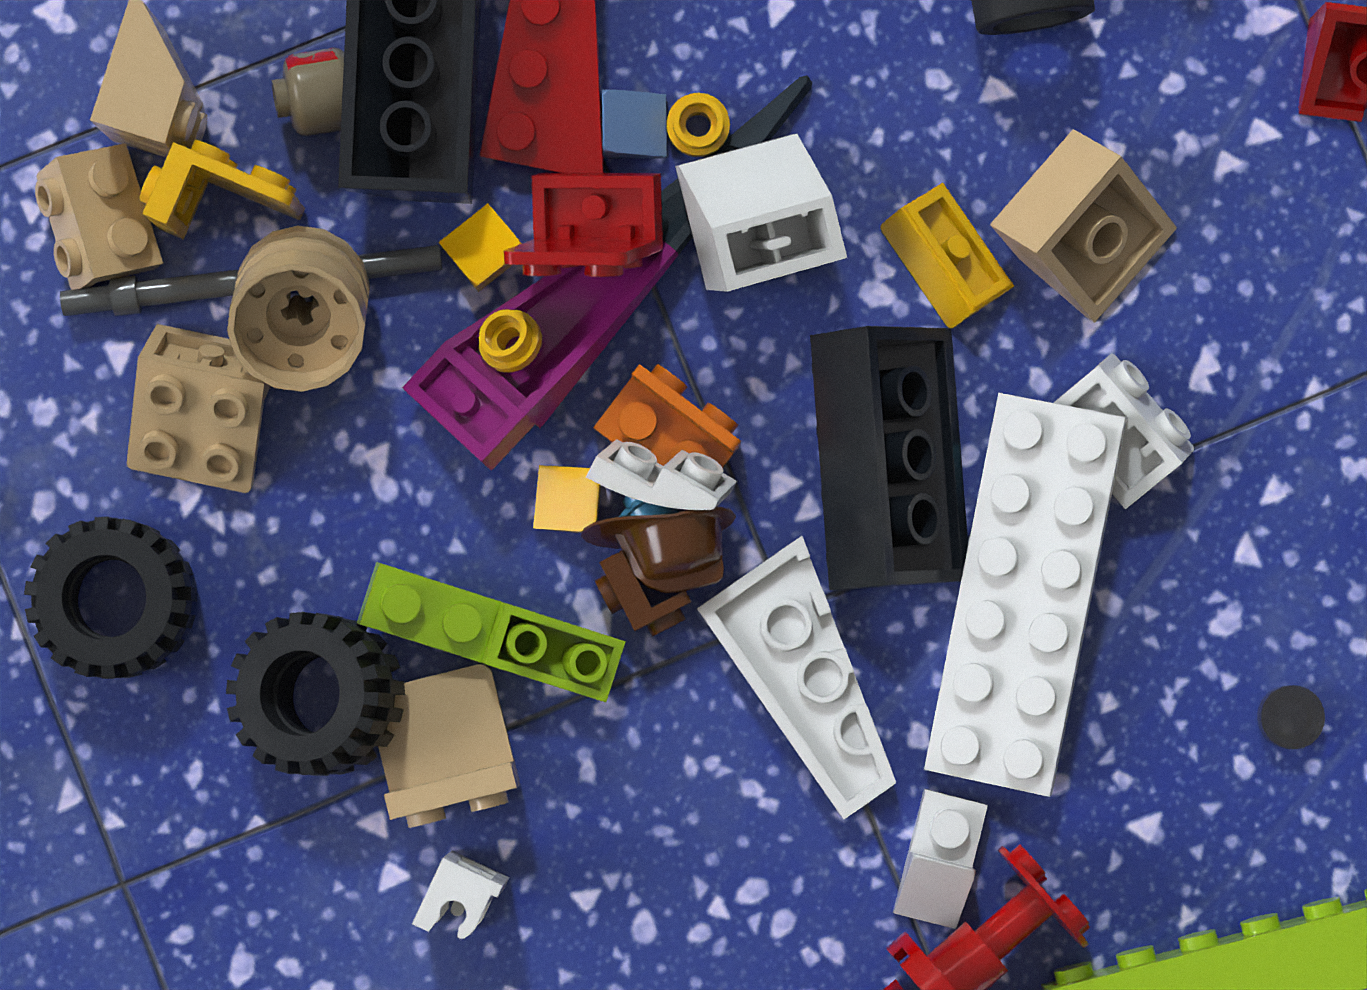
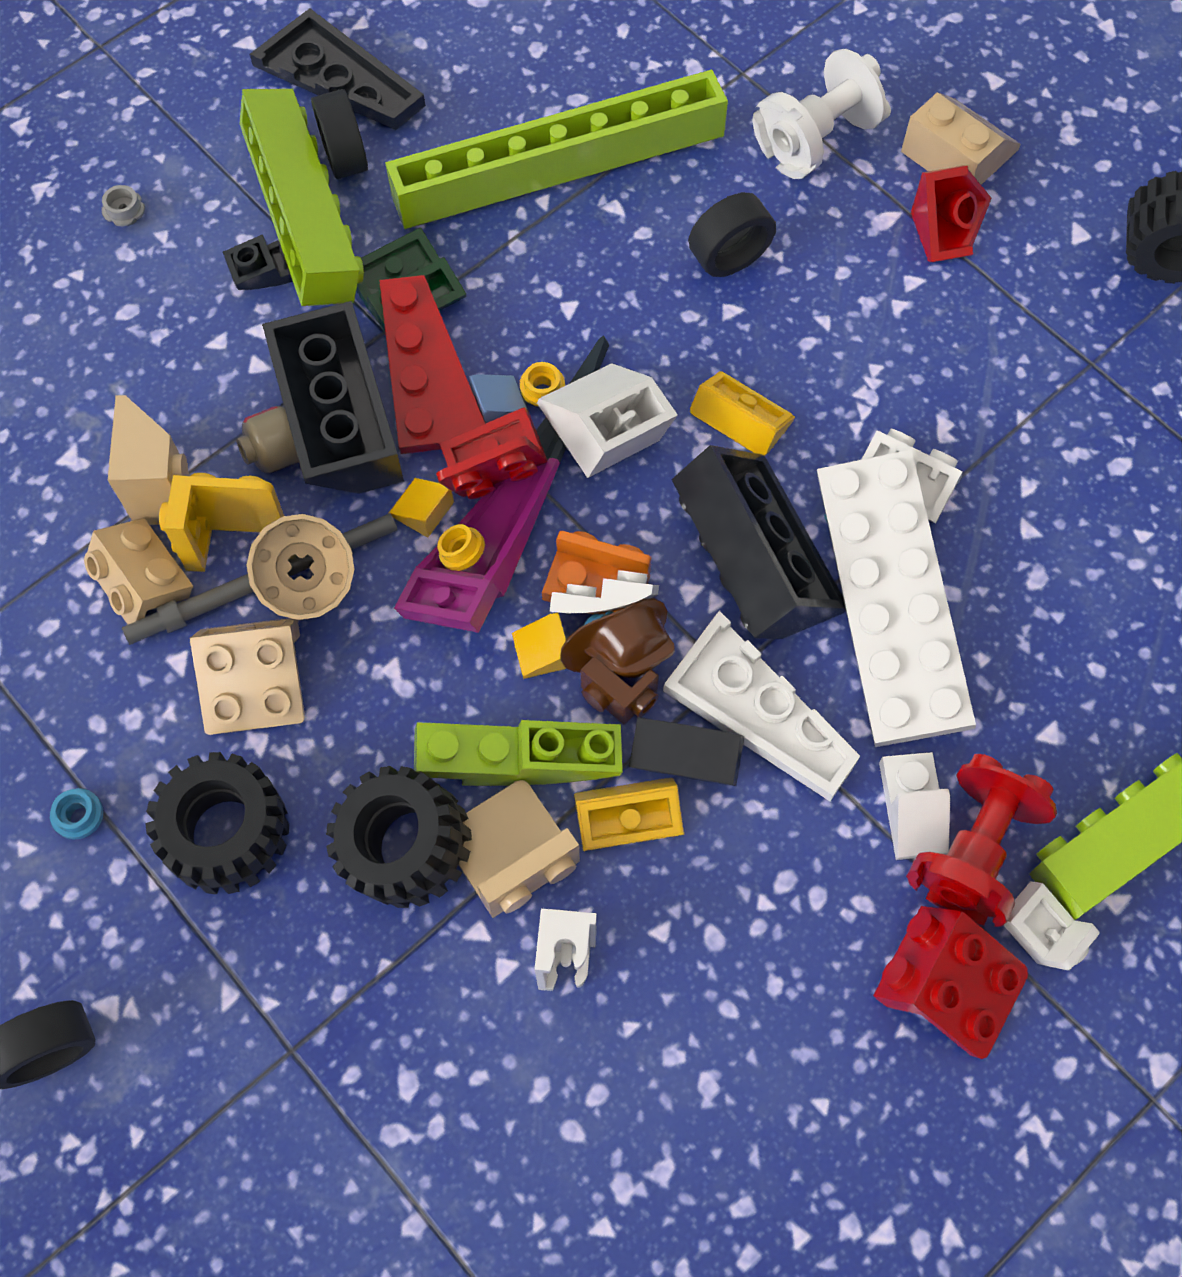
camera: 20 degrees left, 20 degrees down
(598, 745) = (628, 813): none -> yellow slope
(692, 702) = (686, 751): none -> black slope
(1084, 224) = (825, 358): tan slope -> none
(1291, 717) = (1114, 621): clear smoke tile -> none

